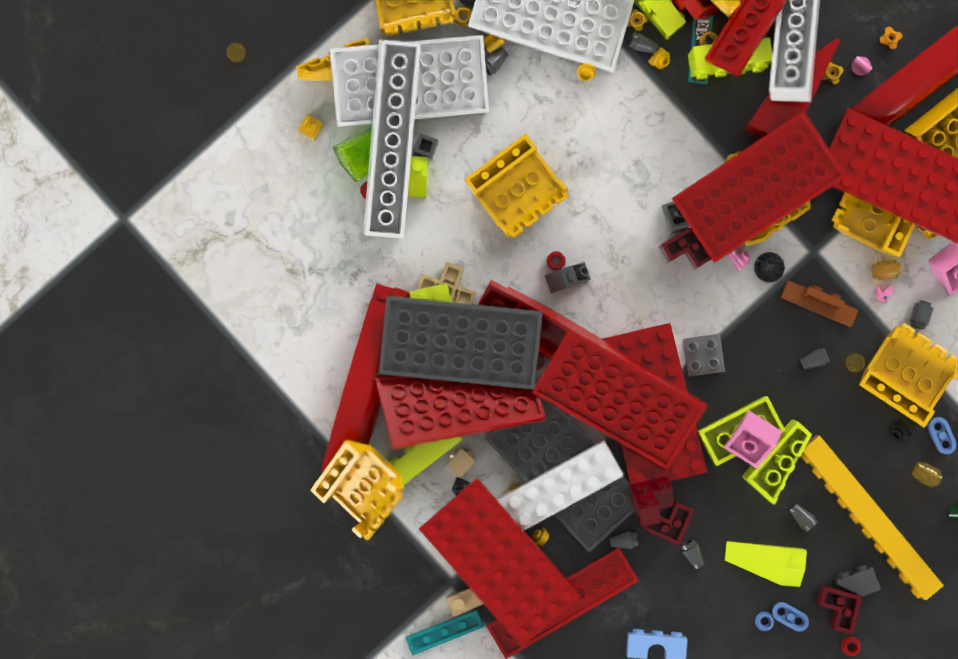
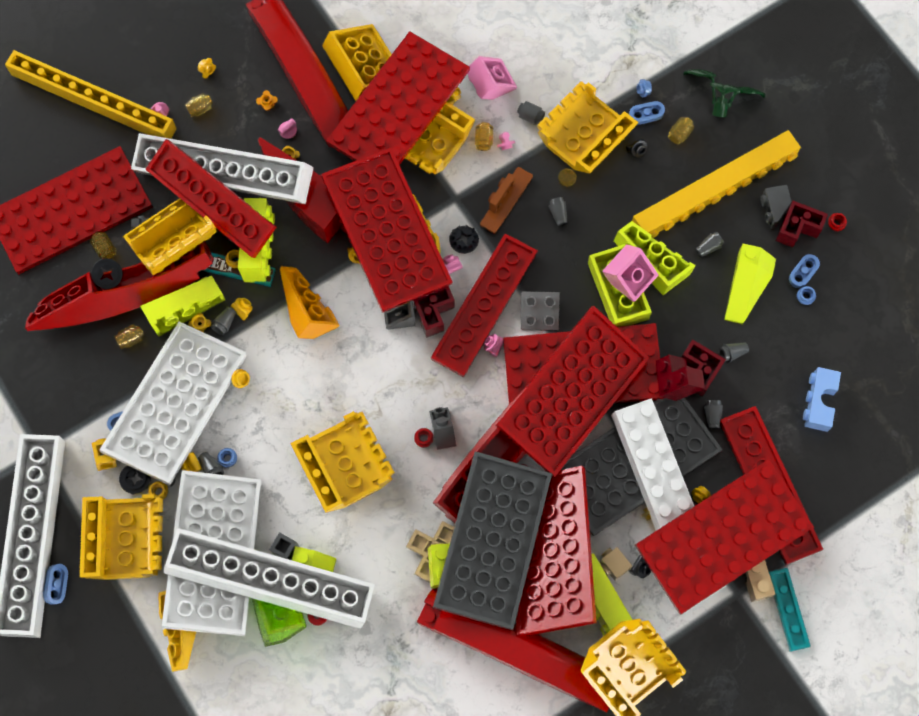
camera: 80 degrees left, 15 degrees down
(311, 127) = (239, 667): yellow tile -> none
(506, 69) = (224, 452): none -> medium blue plate
(661, 313) = (493, 344): none -> bright pink plate
(667, 122) = (305, 310): none -> light orange wedge
(702, 298) = (484, 305): none -> red plate

